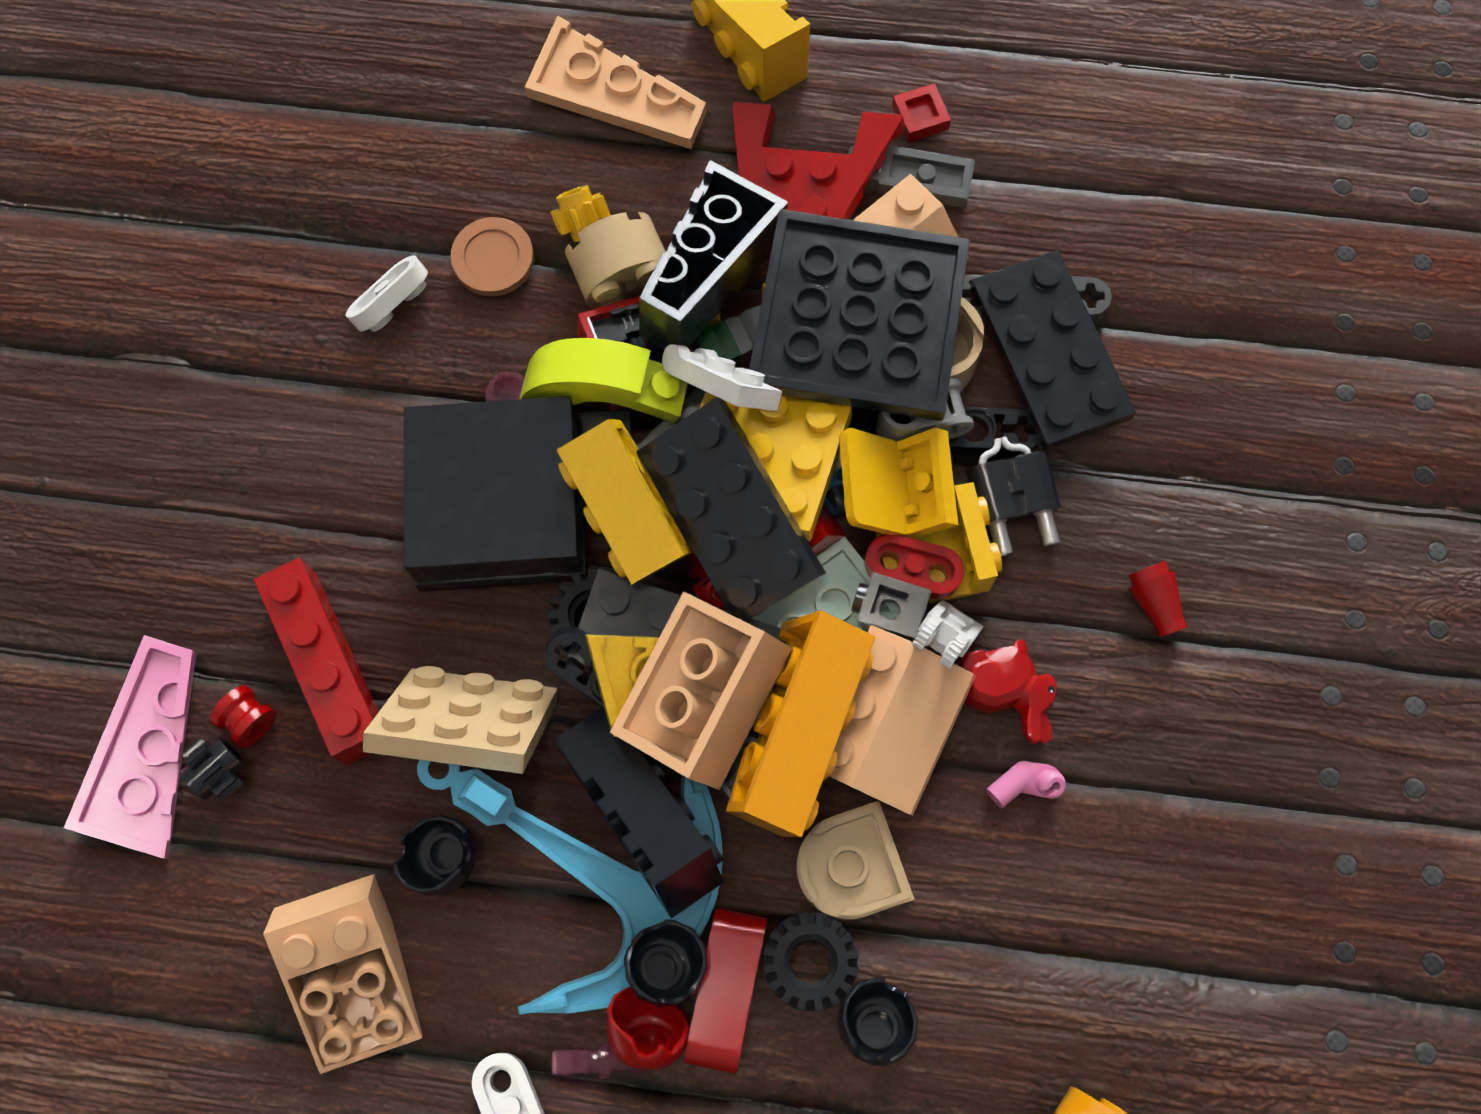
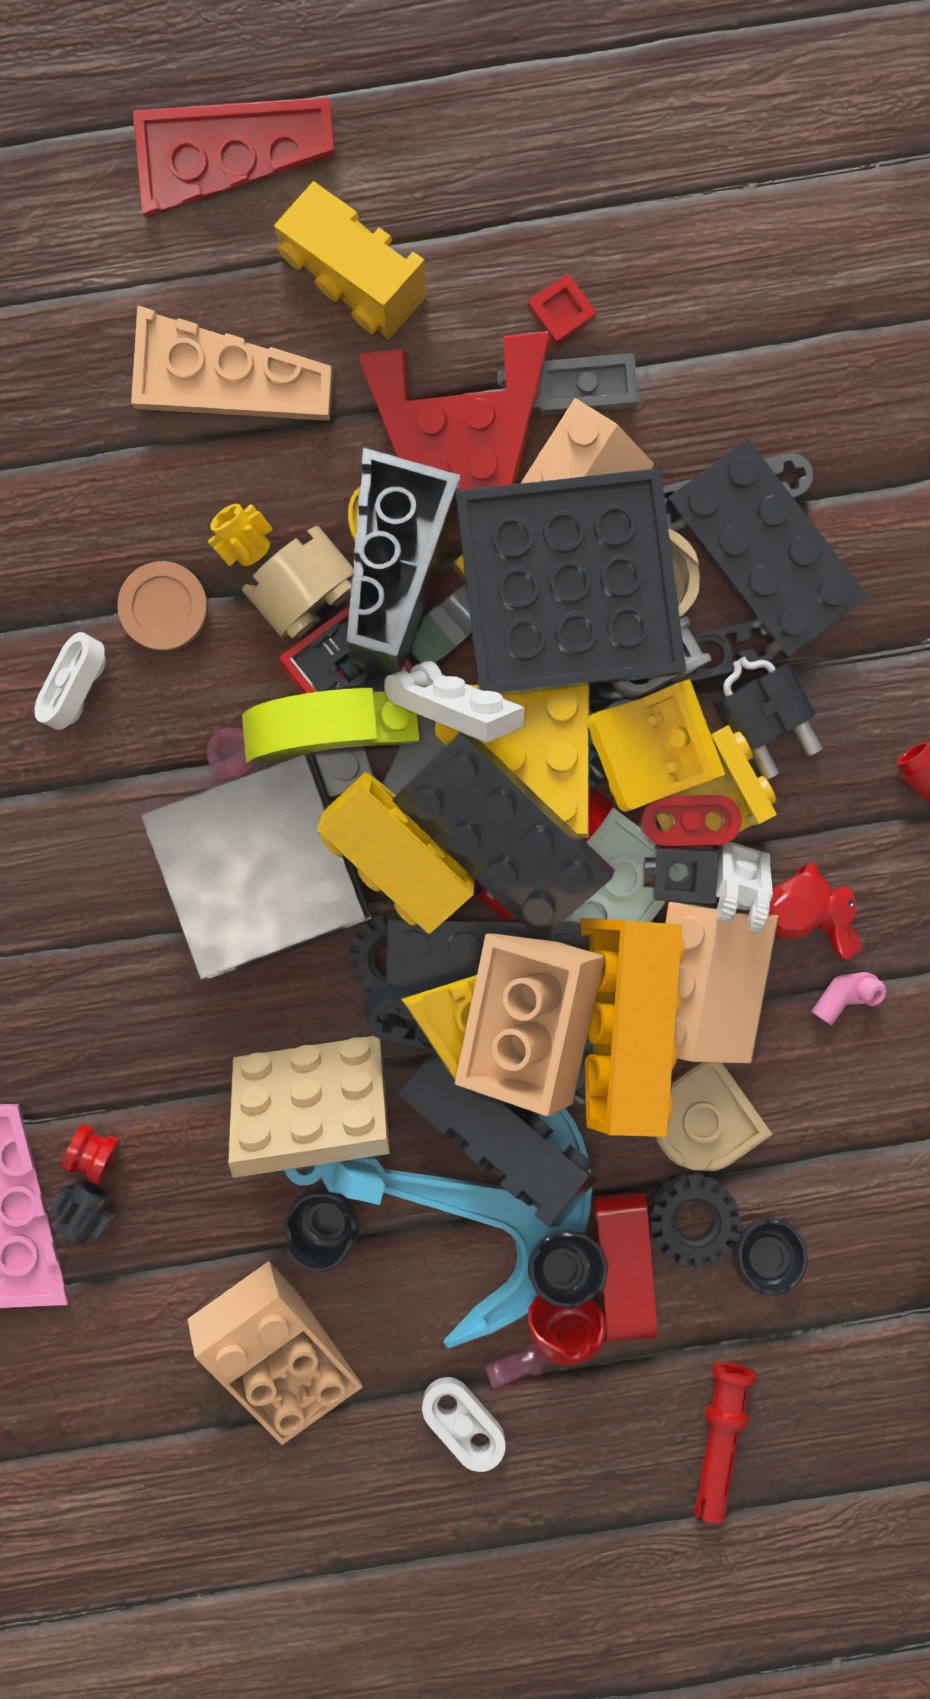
camera: 20 degrees left, 15 degrees up
(319, 657) = (146, 1079): red brick -> none

